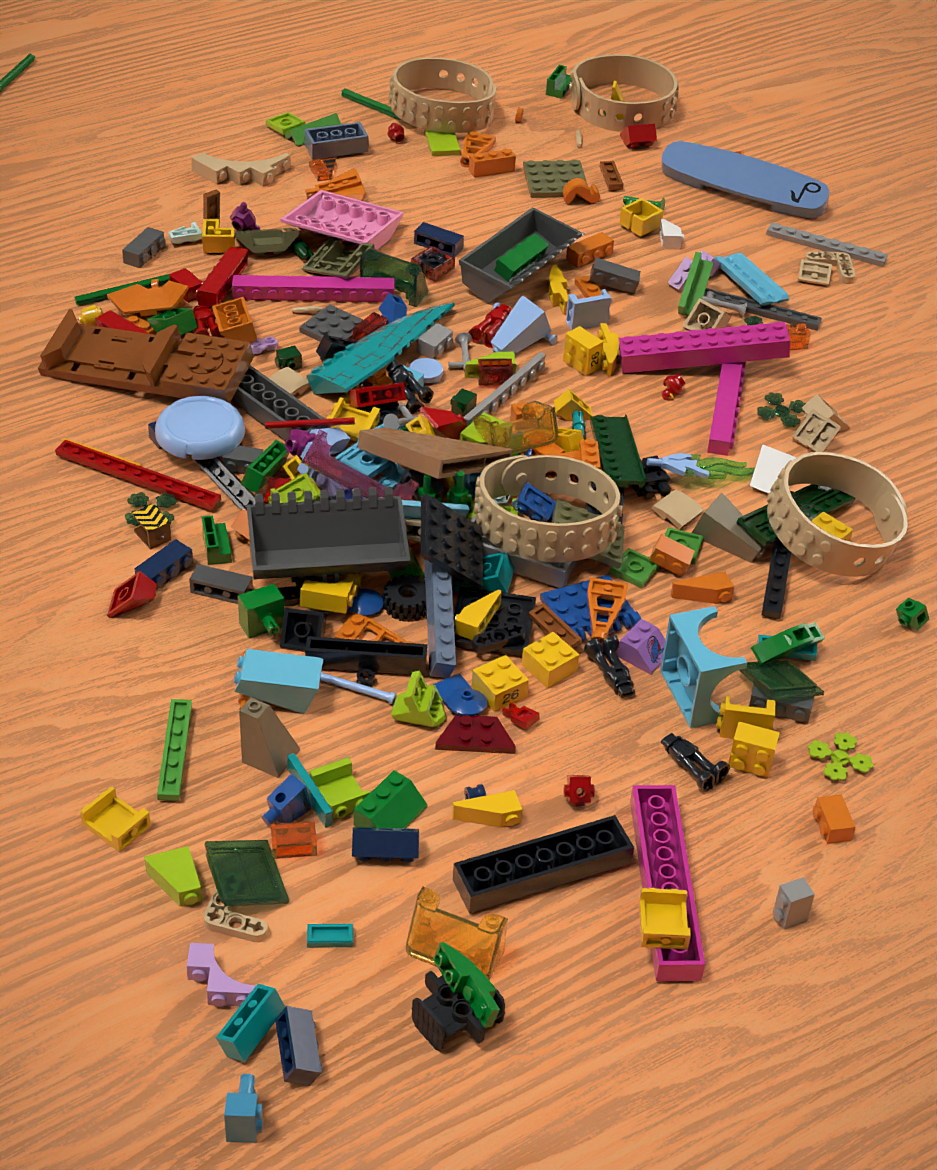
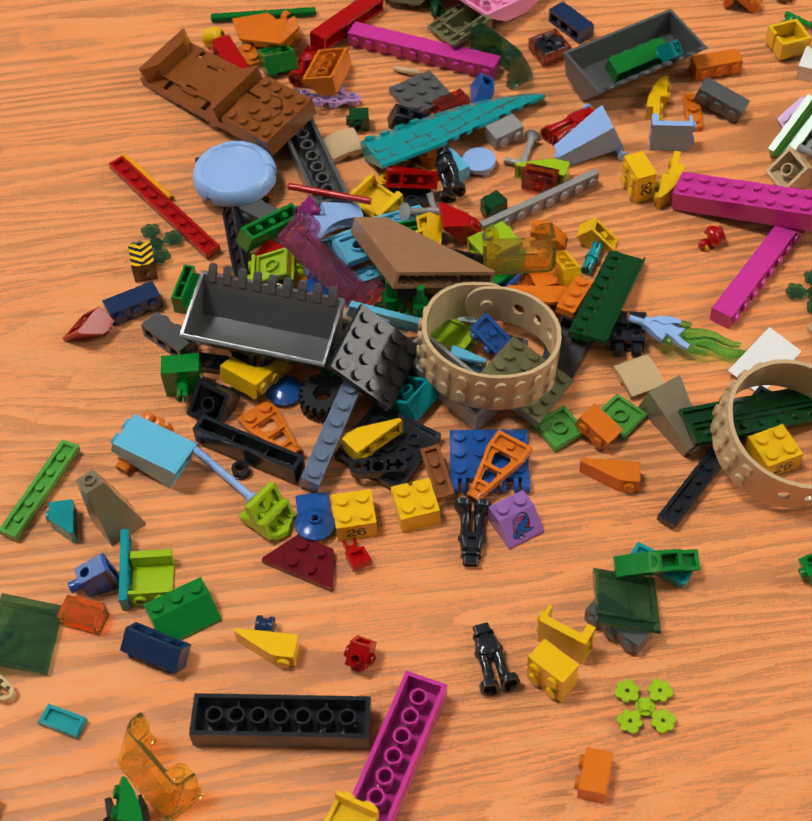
camera: 30 degrees right, 10 degrees up
(187, 278) = (310, 19): red brick -> none
(219, 767) = (63, 518): none -> teal slope
(551, 242) = (669, 50): none -> teal slope
(692, 668) = (533, 557): medium azure piece -> none

